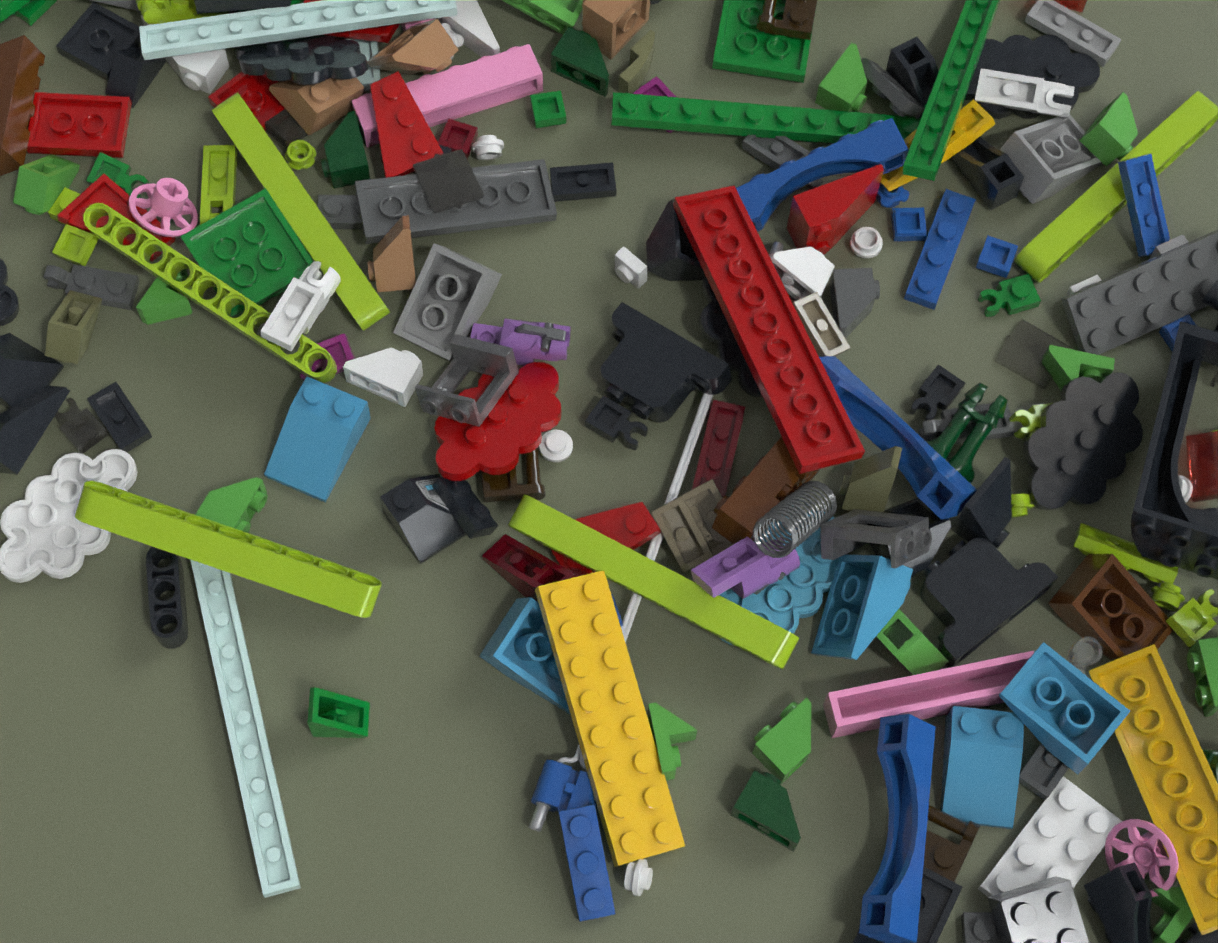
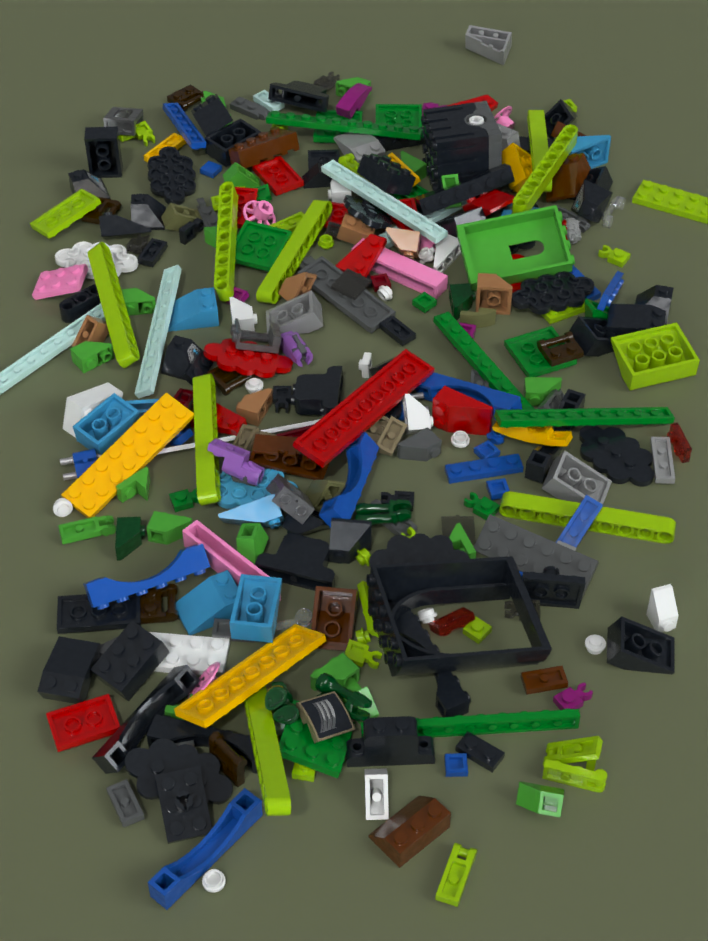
camera: 60 degrees right, 20 degrees down
(87, 602) = (60, 281): none -> bright pink plate
(113, 336) = (189, 230): none -> black plate
(259, 624) = (92, 330): none -> medium nougat slope
(300, 306) = (242, 264): white plate -> none
(307, 650) = (91, 355): none -> bright green slope
(333, 514) = (158, 332): none -> light aqua plate
(337, 715) = (66, 375): green slope -> none
(345, 154) = (337, 250): dark green slope -> none
(447, 714) = (84, 402): none -> white wedge
(513, 712) = (105, 424): none -> dark azure slope
(586, 862) = (56, 485): blue plate -> none
(612, 474) = (255, 406): none -> medium nougat slope
(707, 869) = (87, 529): none -> bright green hinge
(733, 685) = (183, 499): none -> green plate
(796, 518) = (253, 451): dark grey piece -> none
(1022, 93) = (595, 448): white plate -> none
(1112, 131) = (614, 494): bright green slope -> none

